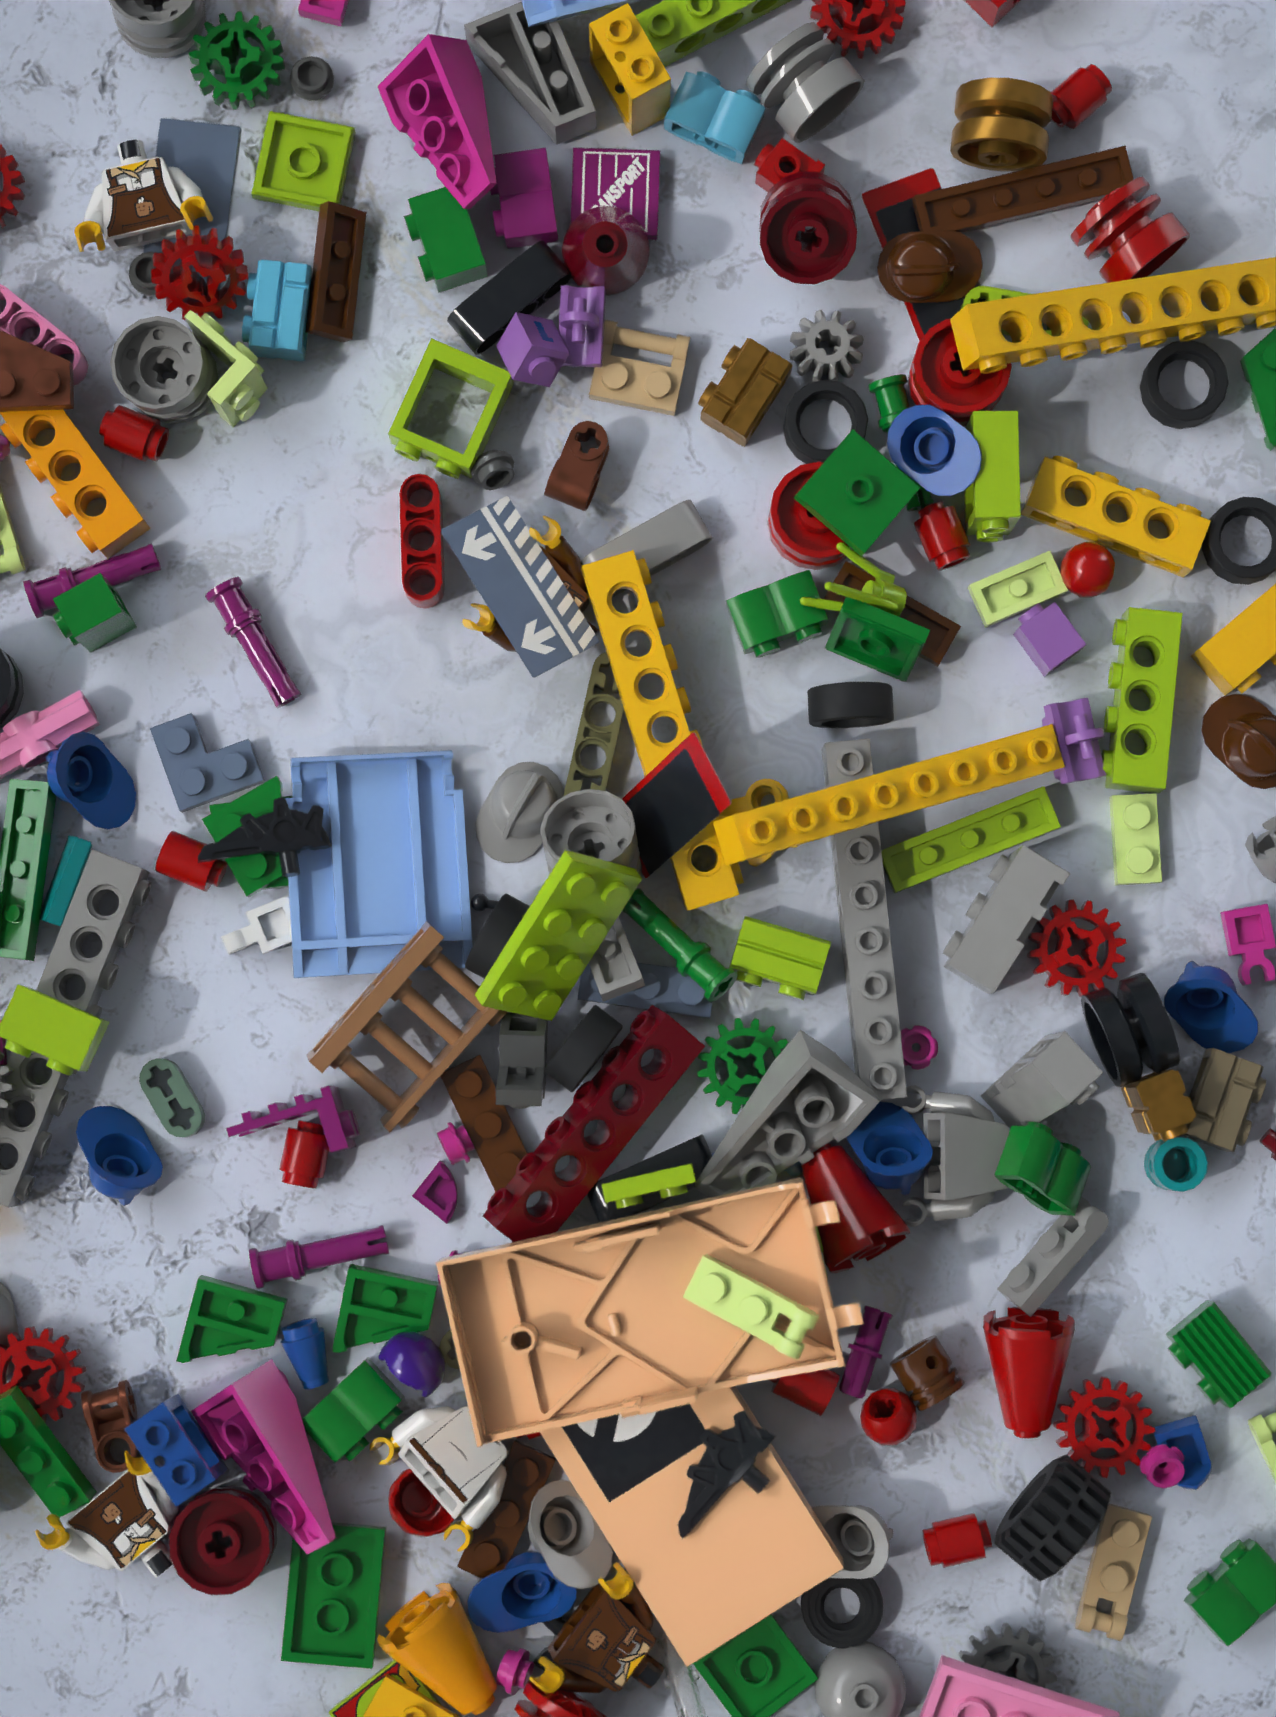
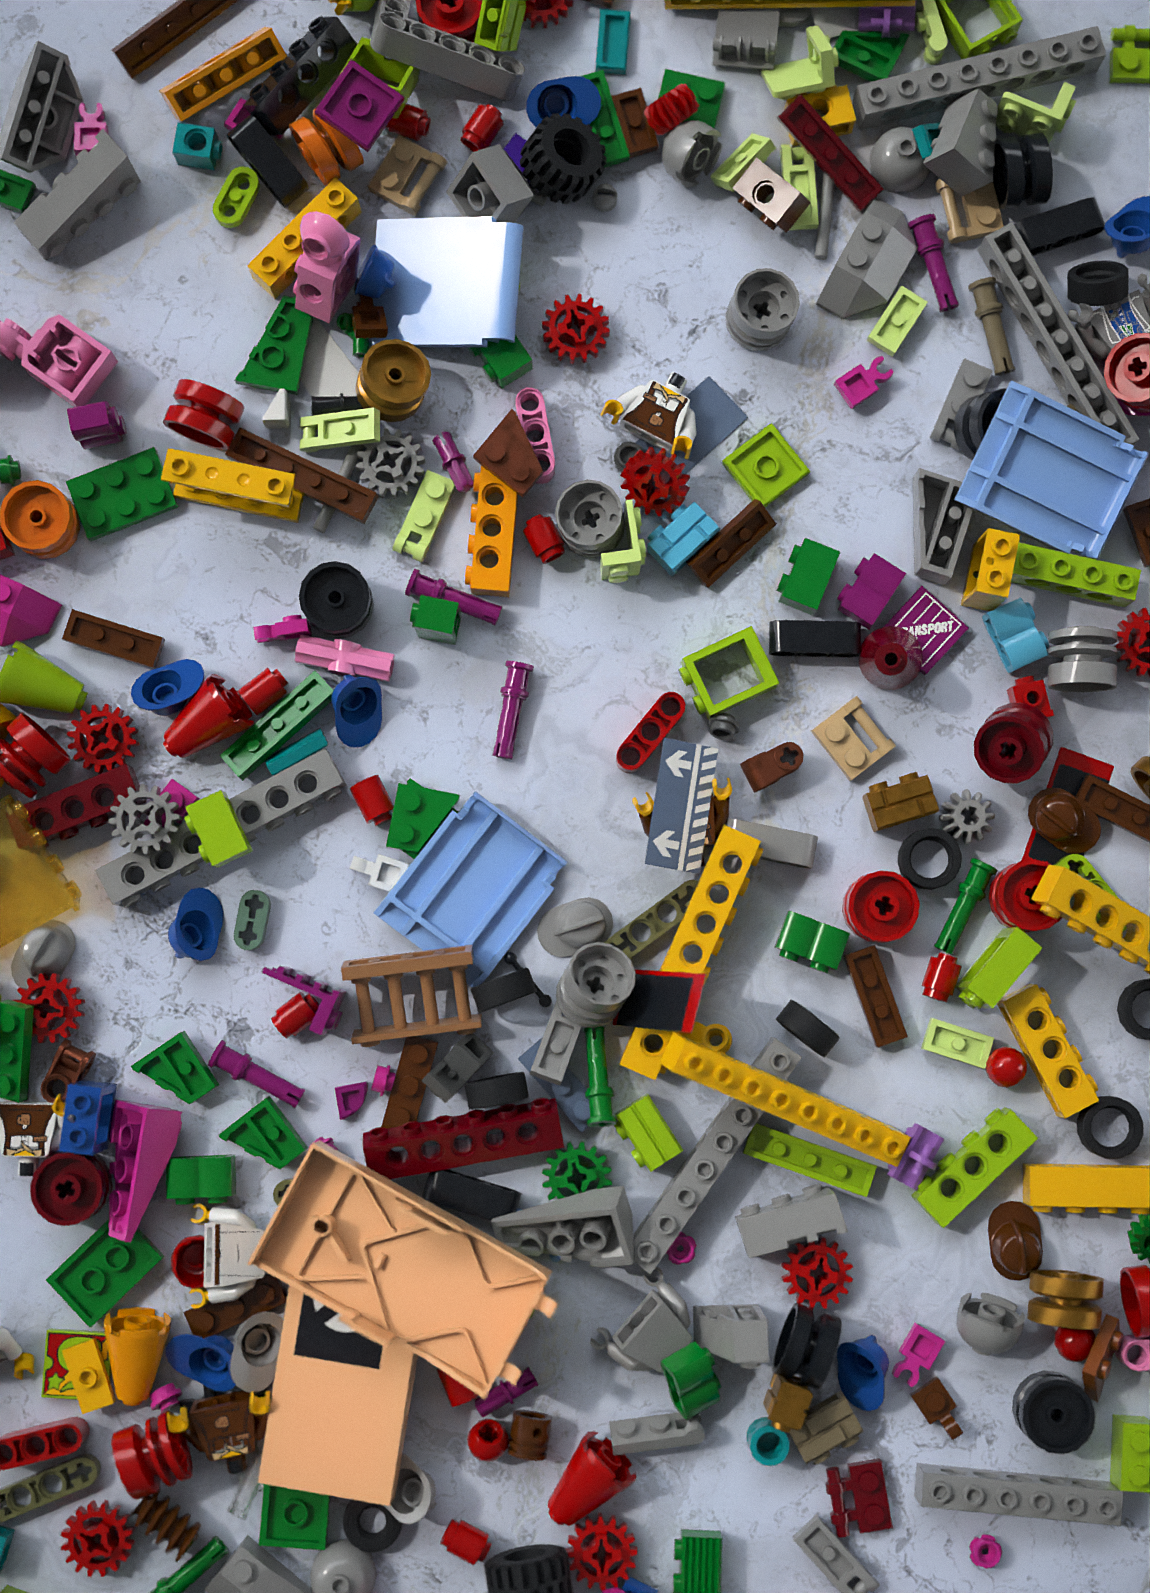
camera: 40 degrees right, 0 degrees up
(199, 775) = (417, 752): sand blue plate -> none
(221, 49) = (769, 370): green gear -> none
(276, 833) = (432, 827): black piece -> none
(307, 1352) = (204, 1123): blue cone -> none
(311, 78) = (810, 424): dark grey plate -> none
(414, 1361) = (257, 1181): dark purple hair -> none
(442, 108) = (867, 503): dark pink wedge -> none
(532, 349) = (802, 679): medium lavender brick -> none
(558, 936) = (535, 1019): lime plate -> none
(582, 324) = (840, 689): medium lavender hips -> none
(668, 1181) = (477, 1204): lime plate -> none
(725, 1461) = (375, 1390): black piece -> none
(750, 1305) = (462, 1318): yellowish green plate -> none
(856, 492) = (912, 915): green plate -> none
(866, 1218) = (571, 1319): red cone -> none
(877, 639) = (854, 1004): green plate -> none
(878, 593) = (873, 982): lime plant -> none
(891, 1147) = (618, 1294): blue piece -> none
(934, 450) = (976, 929): blue piece -> none
(1048, 637) = (951, 1085): medium lavender brick -> none
(1135, 839) = (902, 1239): yellowish green plate -> none

